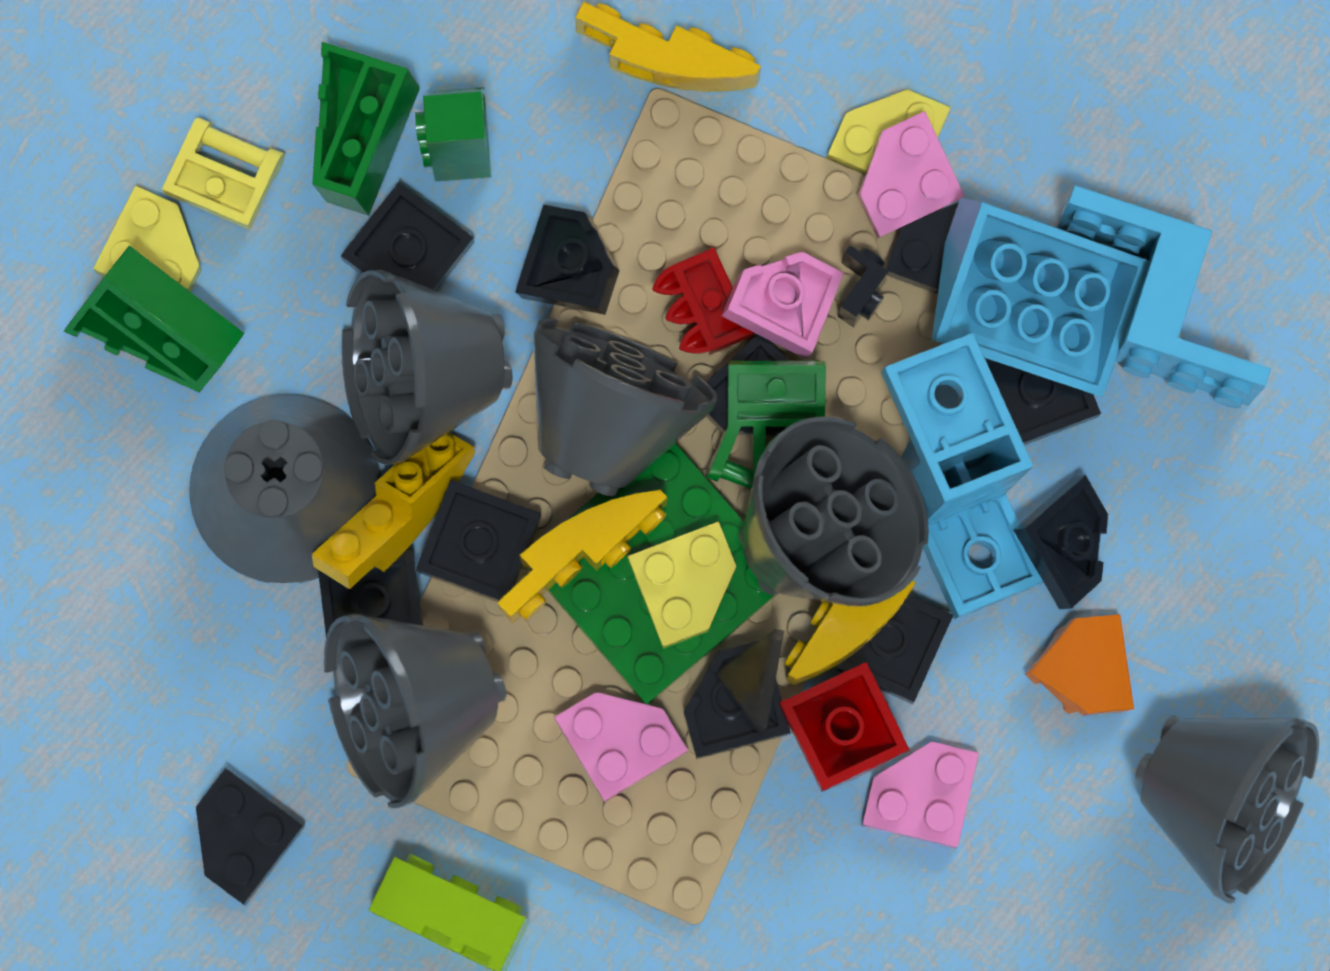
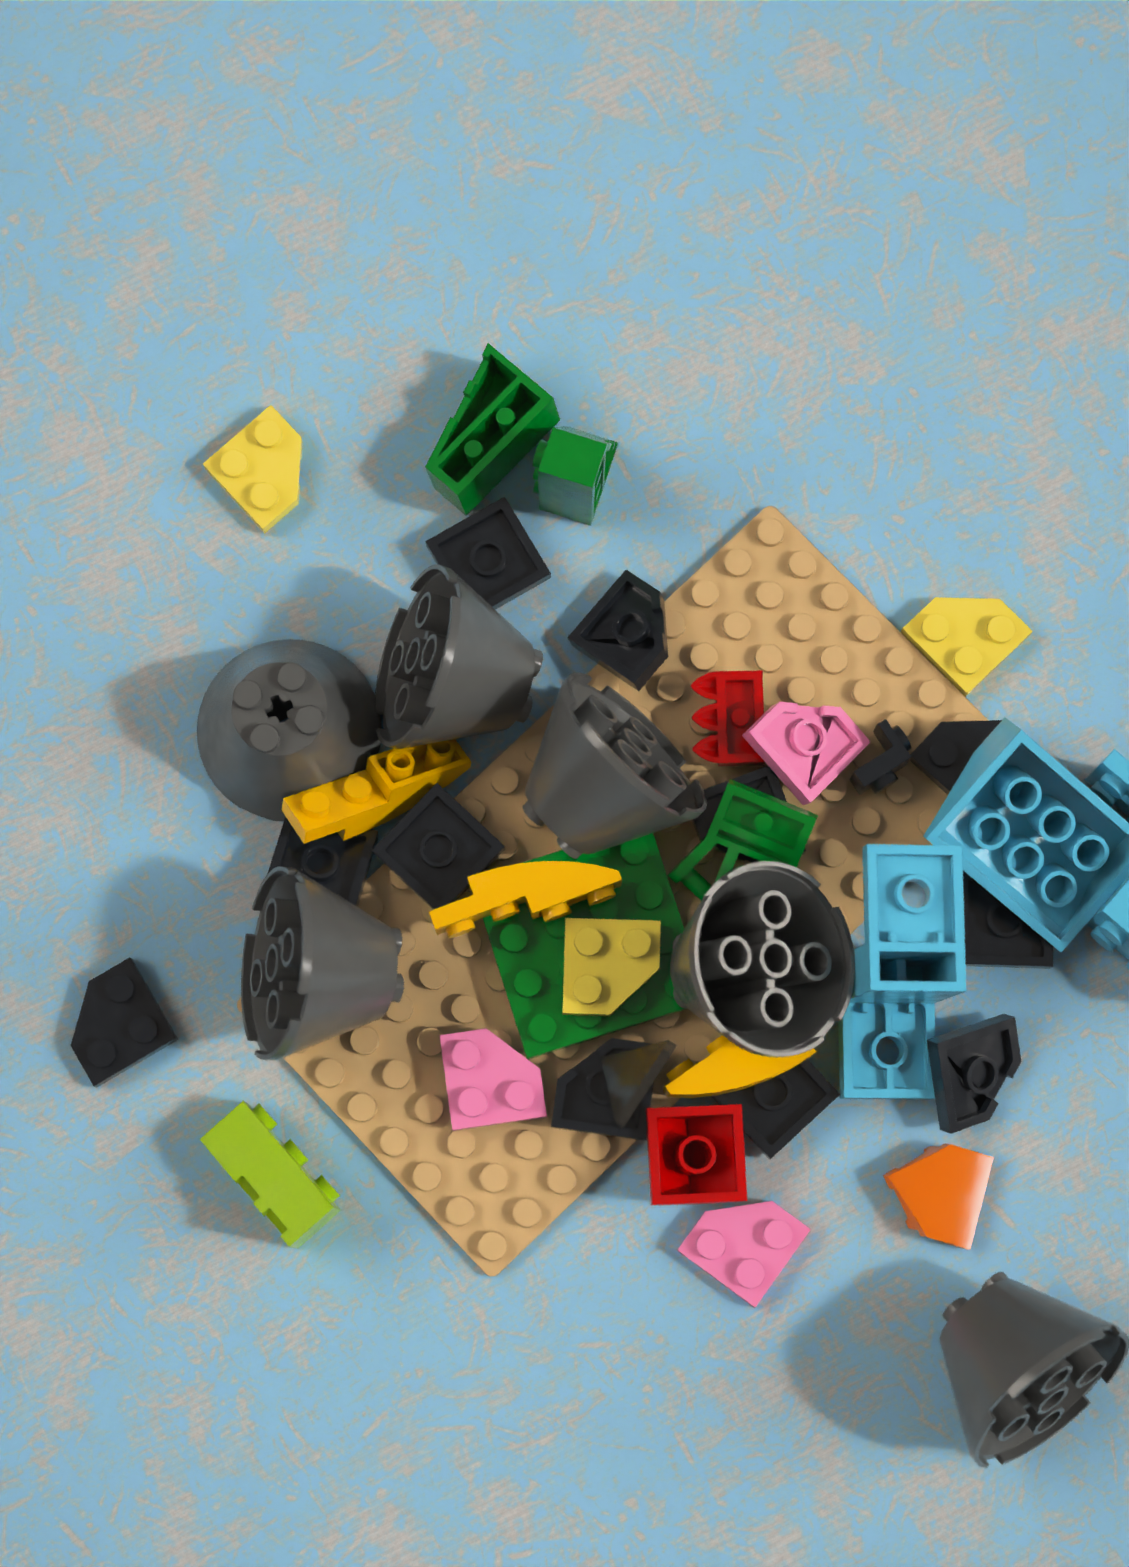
camera: 25 degrees right, 0 degrees up
(156, 320) = (236, 533): green wedge -> none
(217, 186) = (343, 435): light yellow plate -> none
(682, 63) = (806, 492): yellow slope -> none
(907, 176) = (965, 678): bright pink plate -> none

